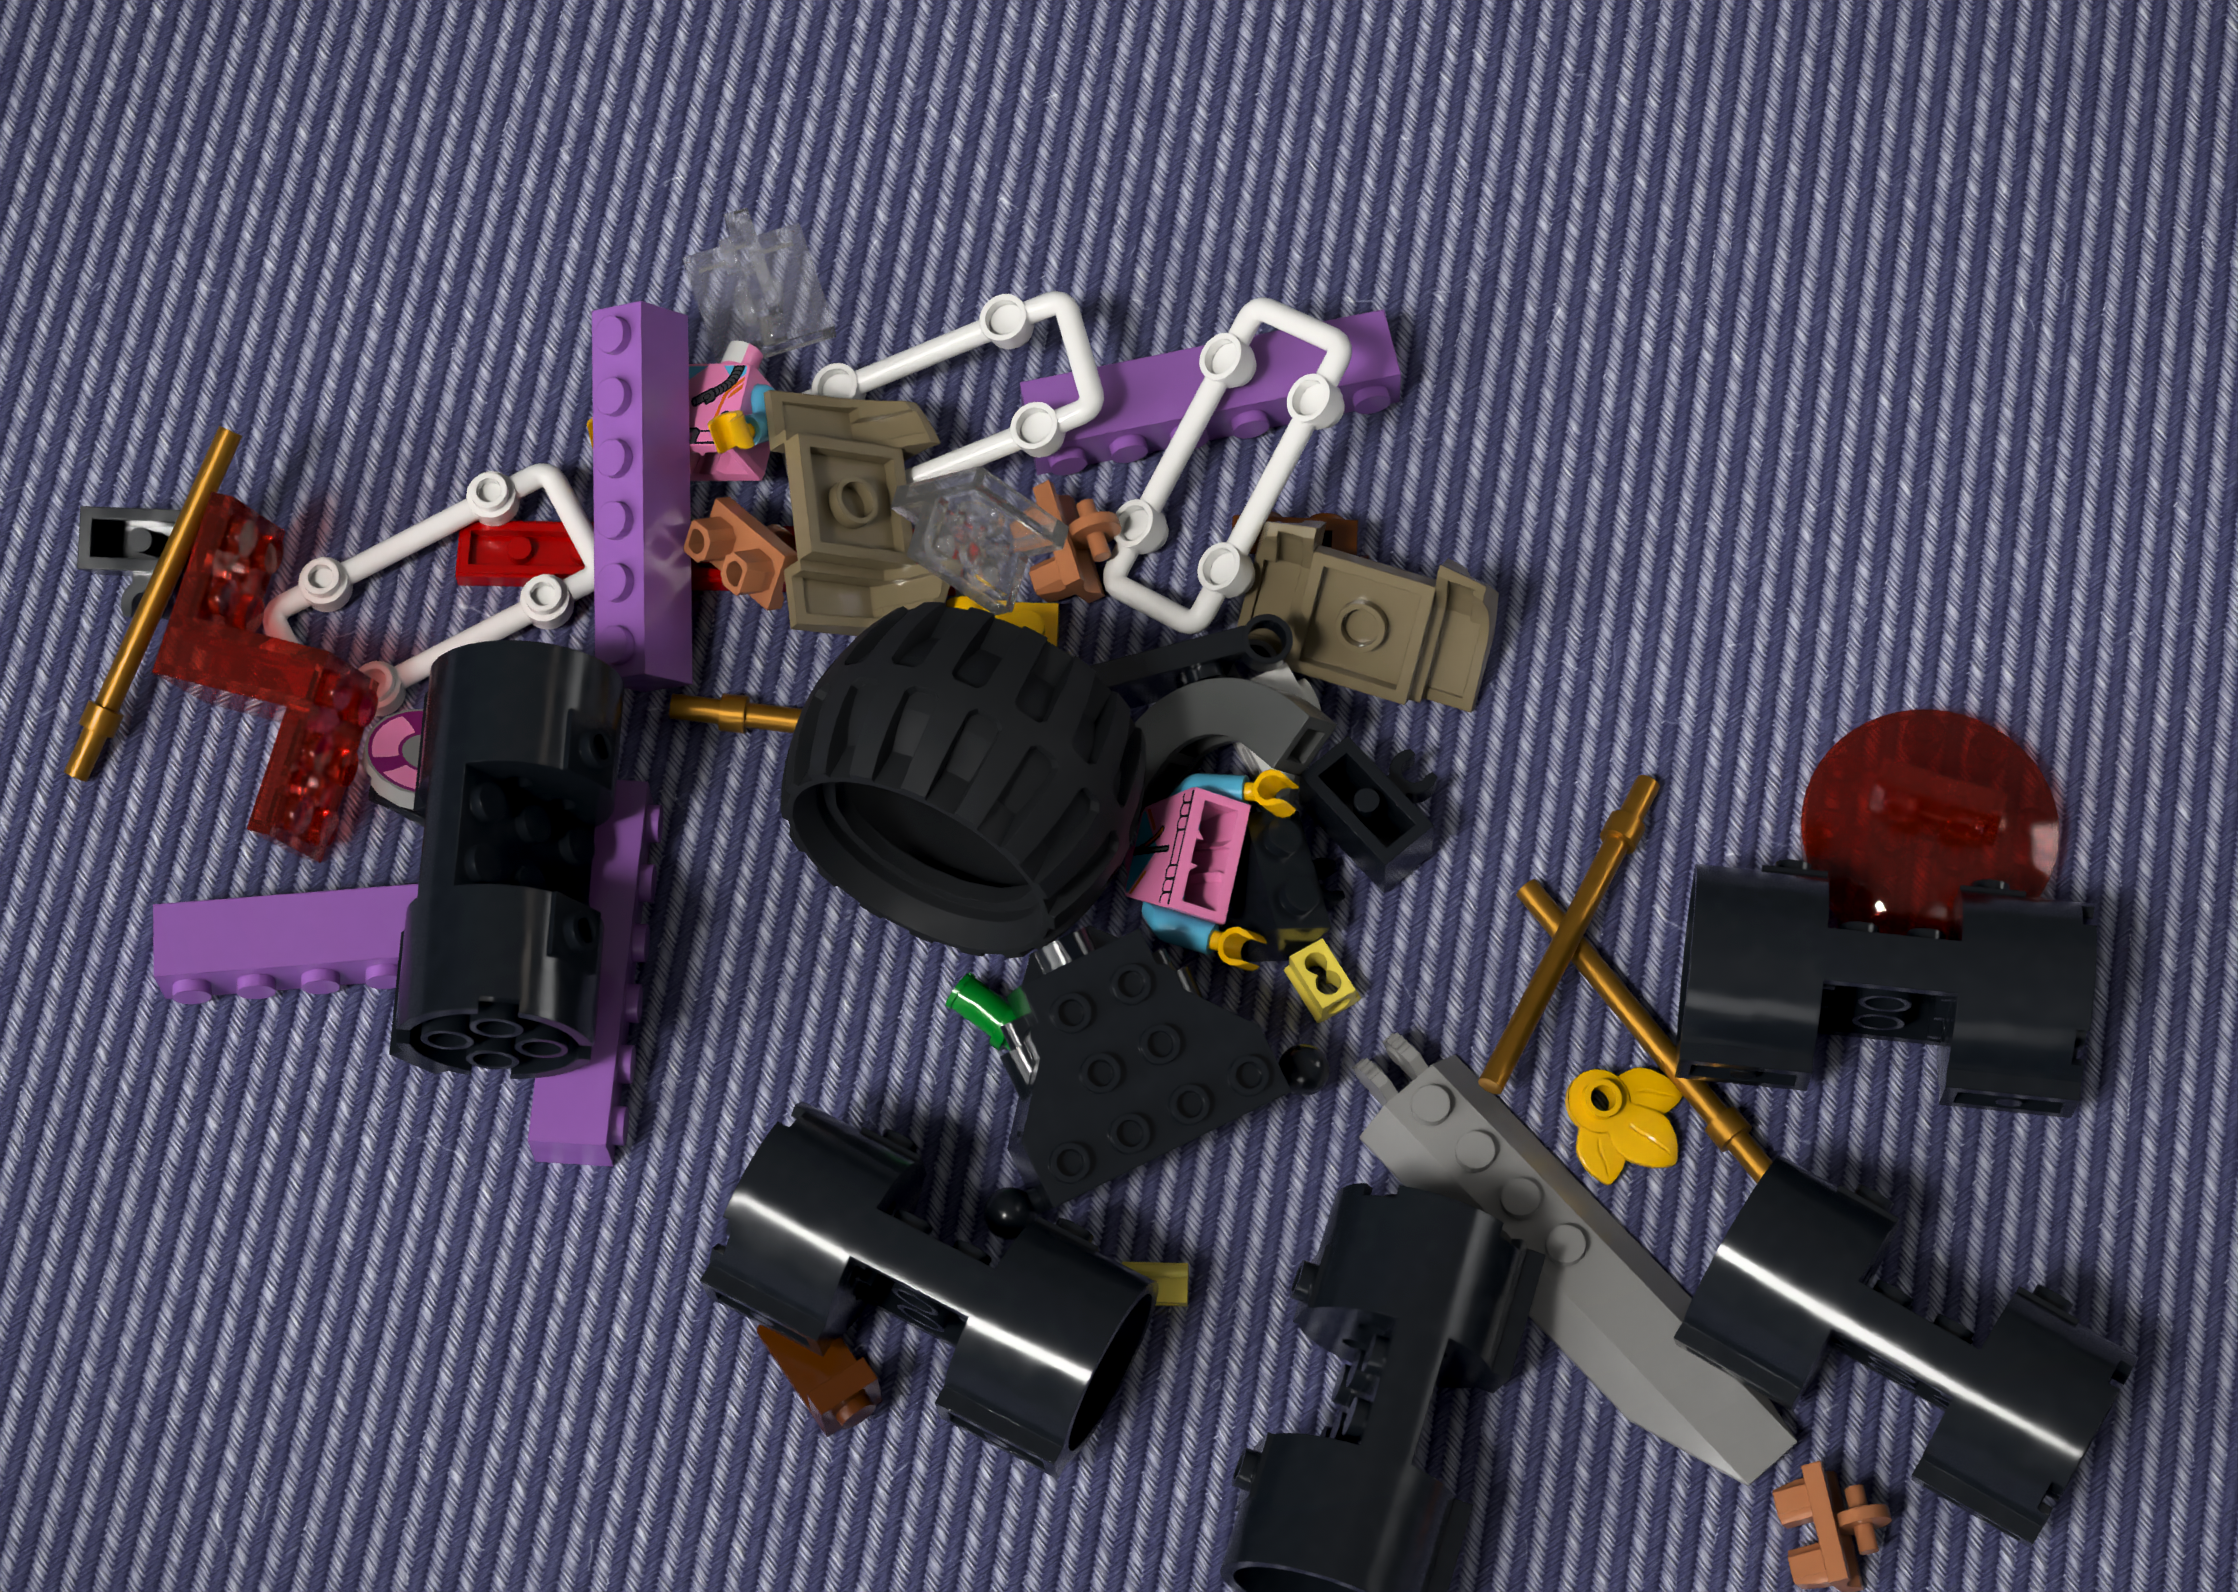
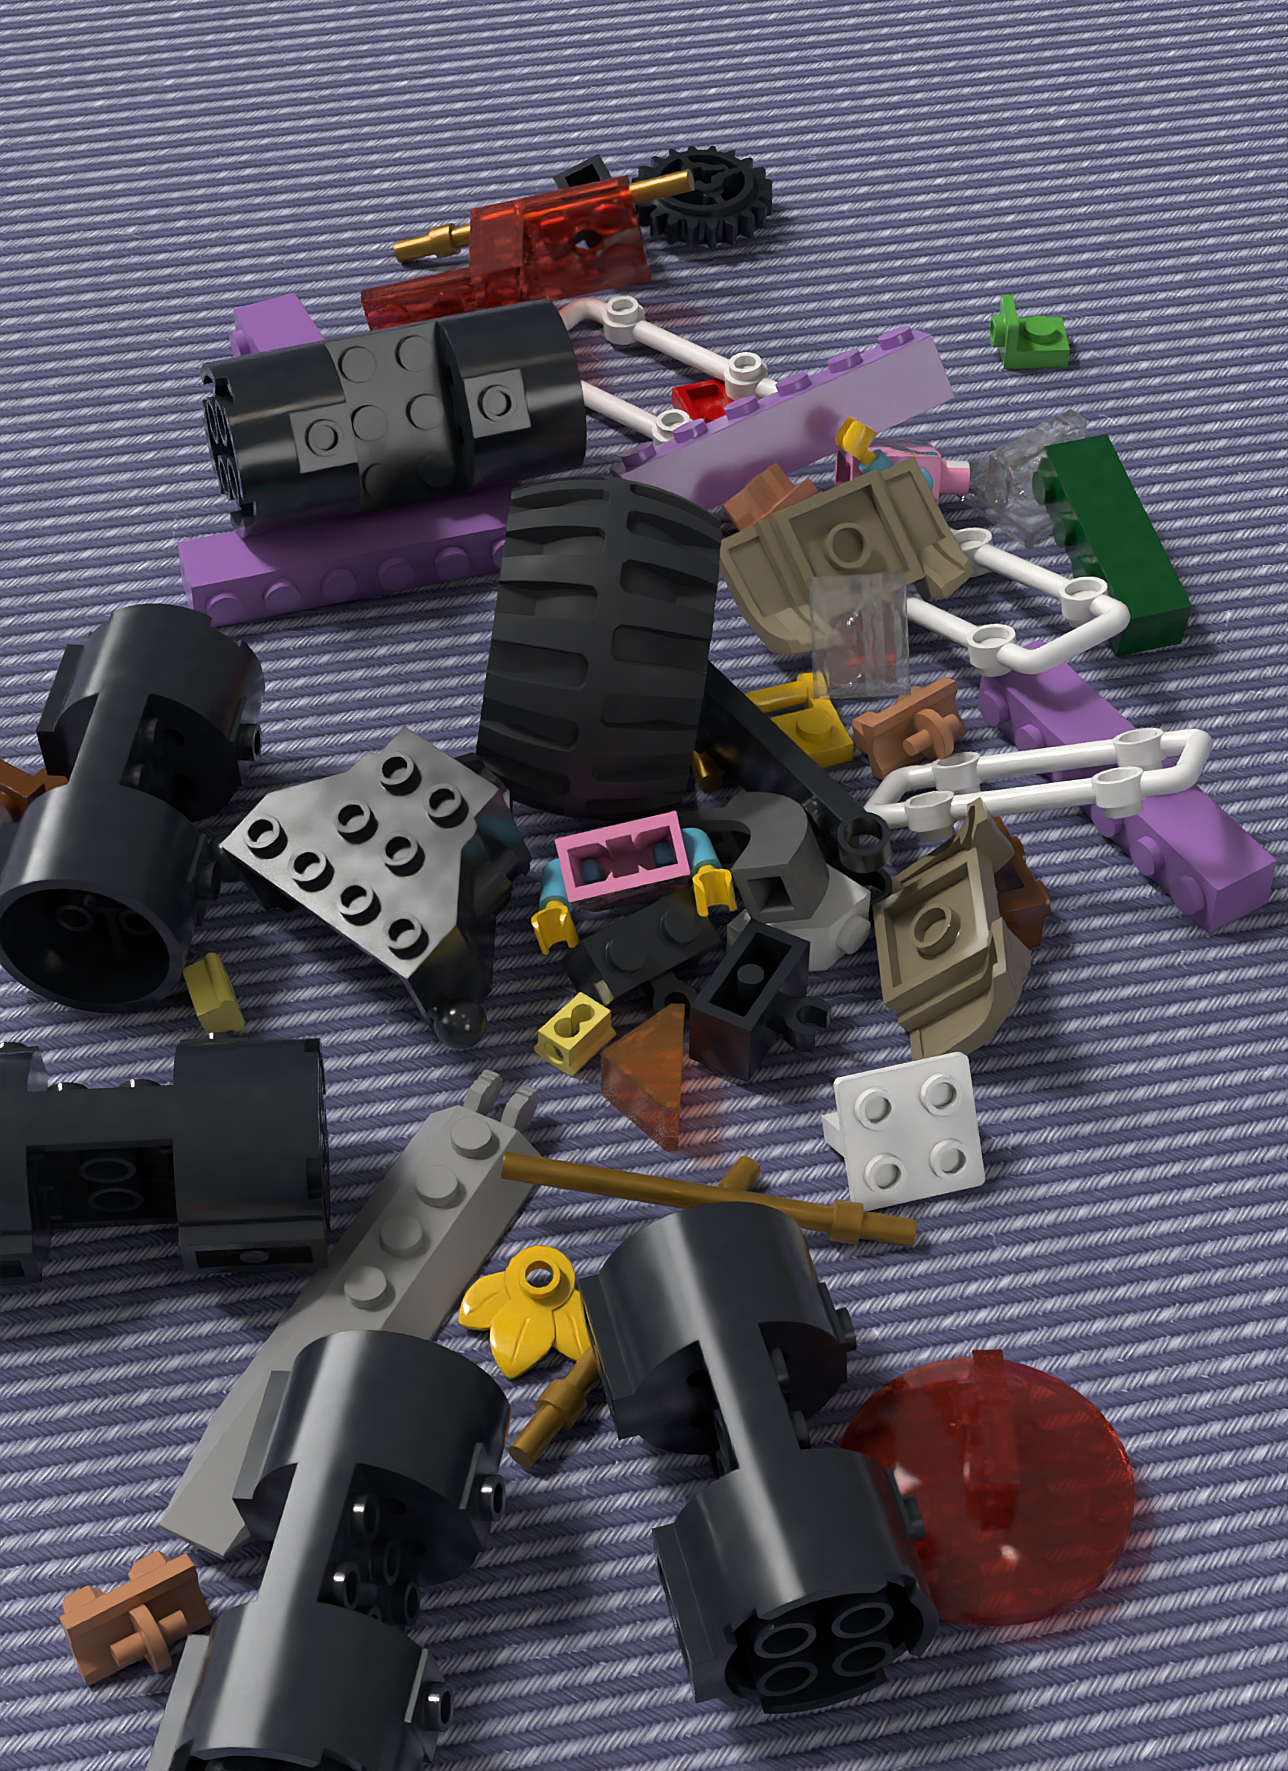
camera: 65 degrees right, 20 degrees down
(121, 410) = (725, 200): none -> black gear
(531, 200) = (1028, 341): none -> bright green bracket
(899, 260) = (1112, 539): none -> dark green brick
(1410, 929) = (645, 1075): none -> clear orange slope
(1557, 746) = (907, 1131): none -> white bracket

